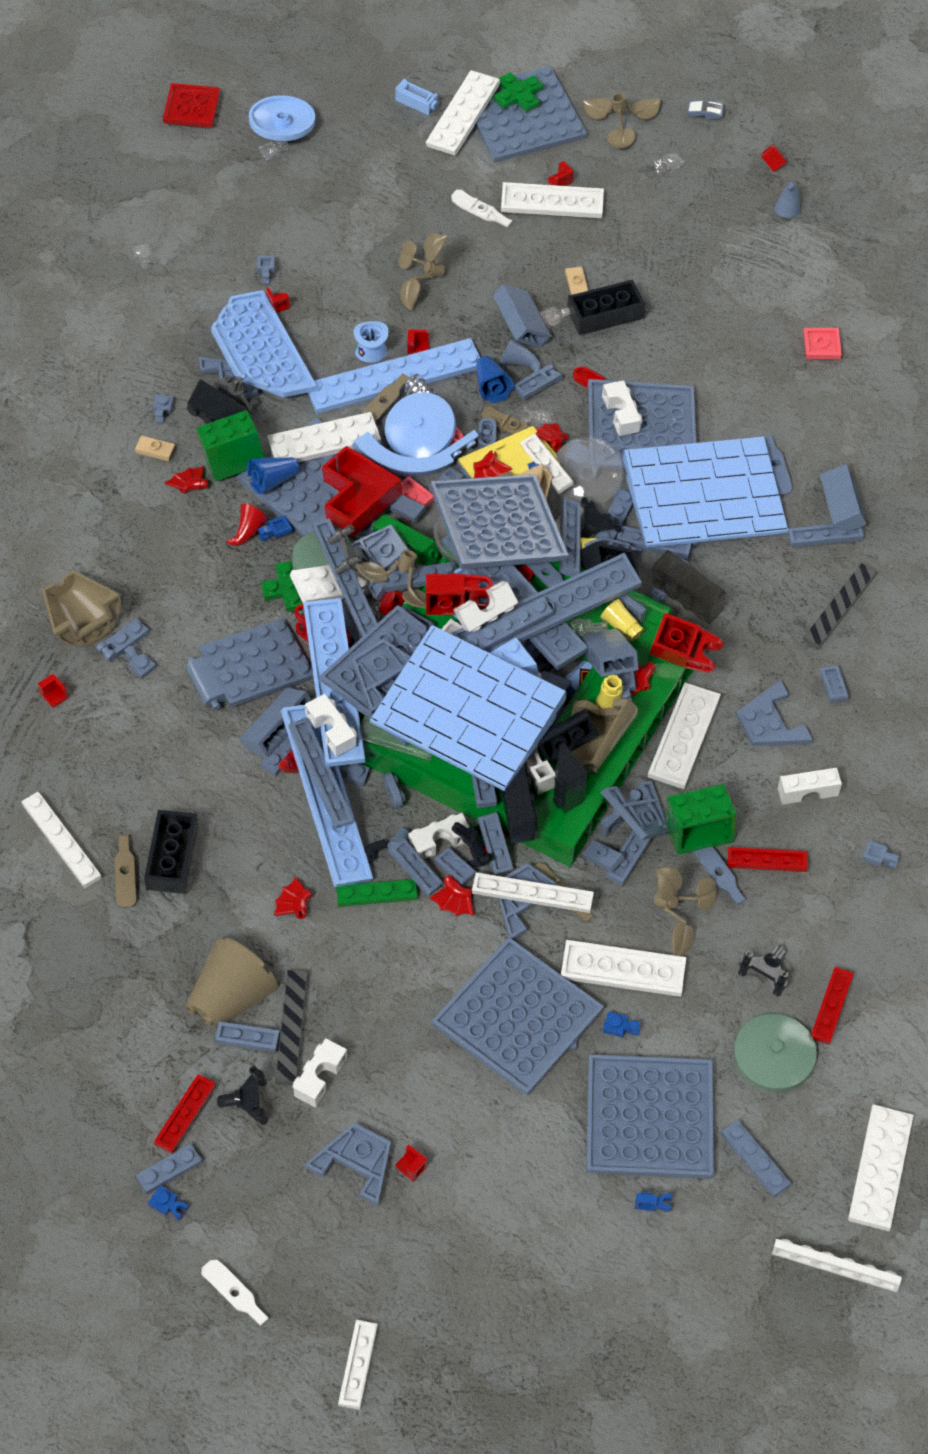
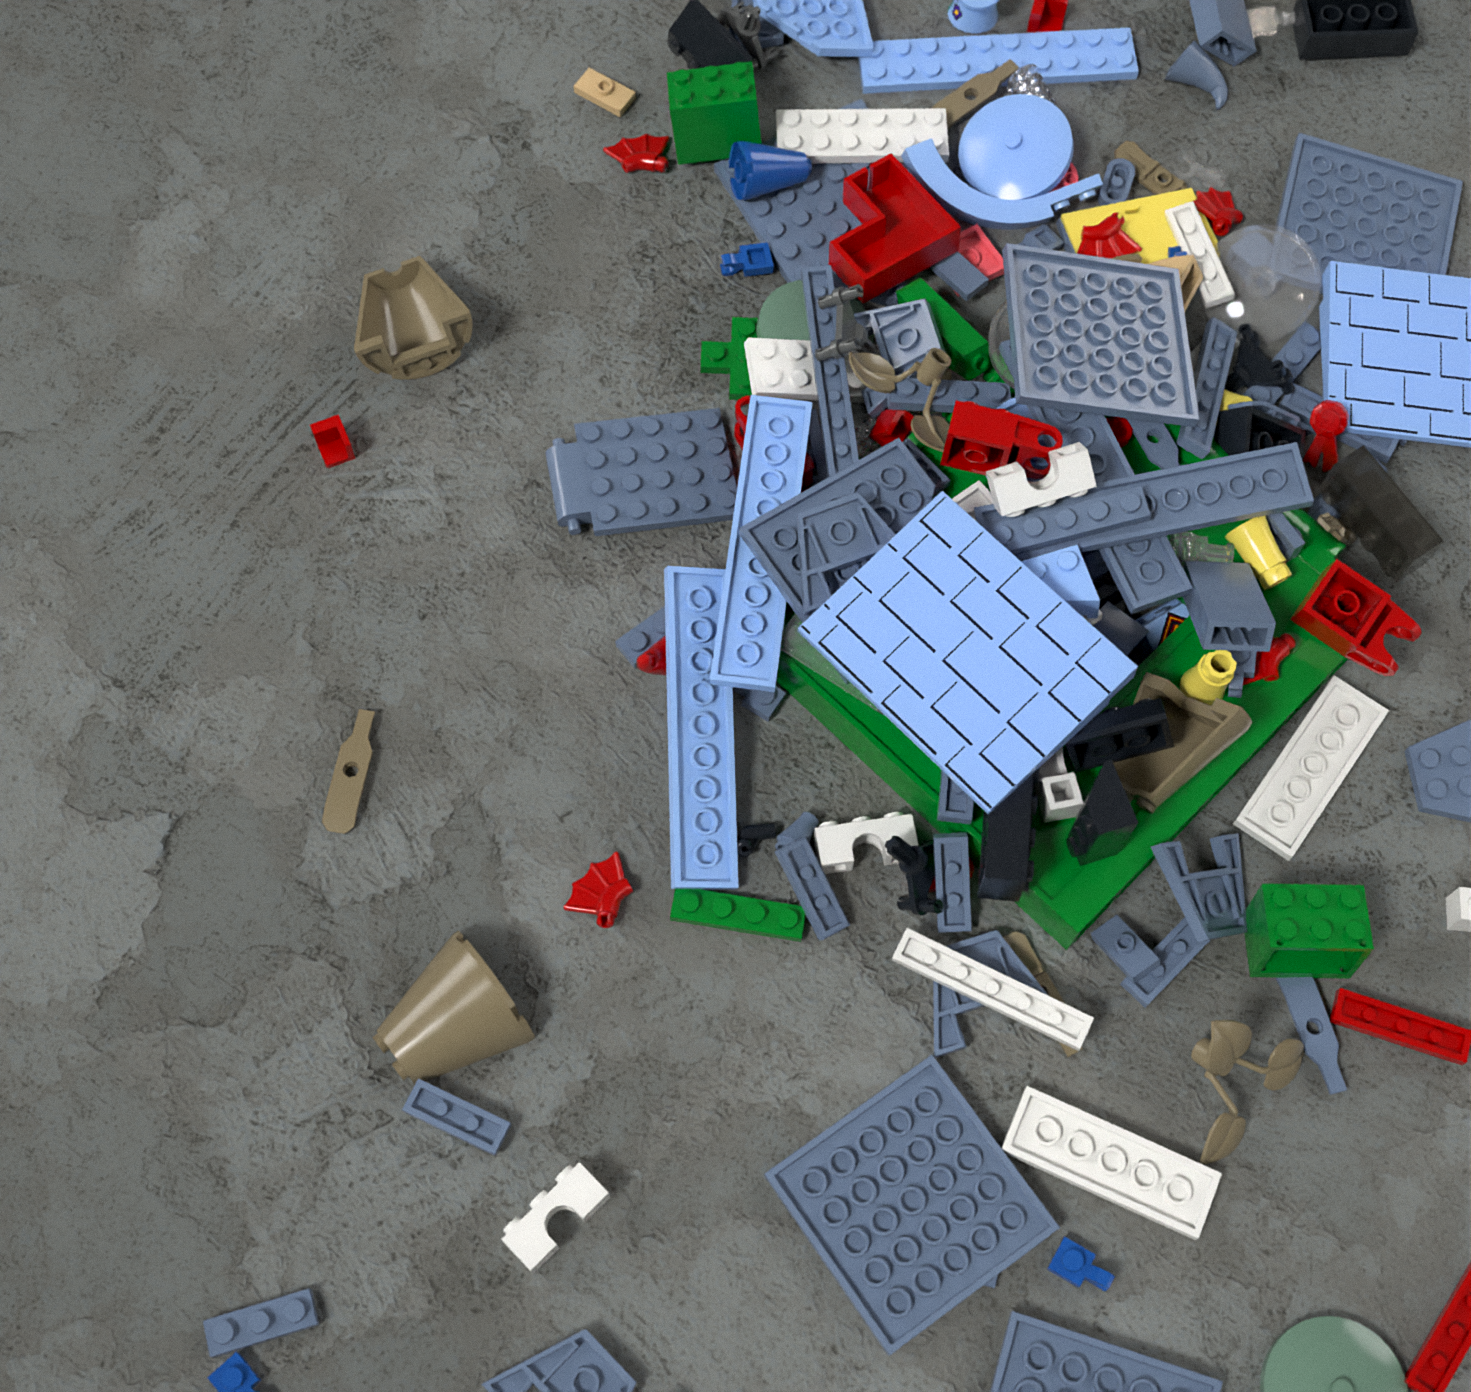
camera: 15 degrees right, 10 degrees up
(61, 840) = (270, 692): white plate -> none
(122, 639) = (465, 384): sand blue plate -> none
(141, 664) = (478, 430): sand blue plate -> none
(162, 405) = (633, 29): sand blue plate -> none
(171, 851) = (429, 759): black brick -> none
(184, 1113) = (315, 1230): red plate -> none
(247, 1096) = (424, 1231): black axle -> none
(250, 521) = (712, 241): red hat -> none
(269, 728) = (640, 590): sand blue brick -> none
(291, 1027) = (533, 1119): tile -> none
(320, 773) = (697, 693): sand blue plate -> none
(324, 712) = (727, 591): white arch -> none
(391, 783) = (814, 754): sand blue plate -> none
(454, 897) = (861, 956): red arm -> none
(455, 866) = (877, 902): sand blue plate -> none
(492, 380) = (1147, 101): blue cone -> none
(537, 382) = (1216, 119): sand blue plate -> none
(582, 374) = (1290, 123): red tile -> none
(612, 822) = (1150, 893): sand blue plate -> none
(627, 418) = (1341, 171): white arch -> none
(646, 542) = (1327, 421): none -> red piece
(665, 600) = (1337, 528): none -> dark tan piece
(767, 966) = (1359, 1230): black axle -> none

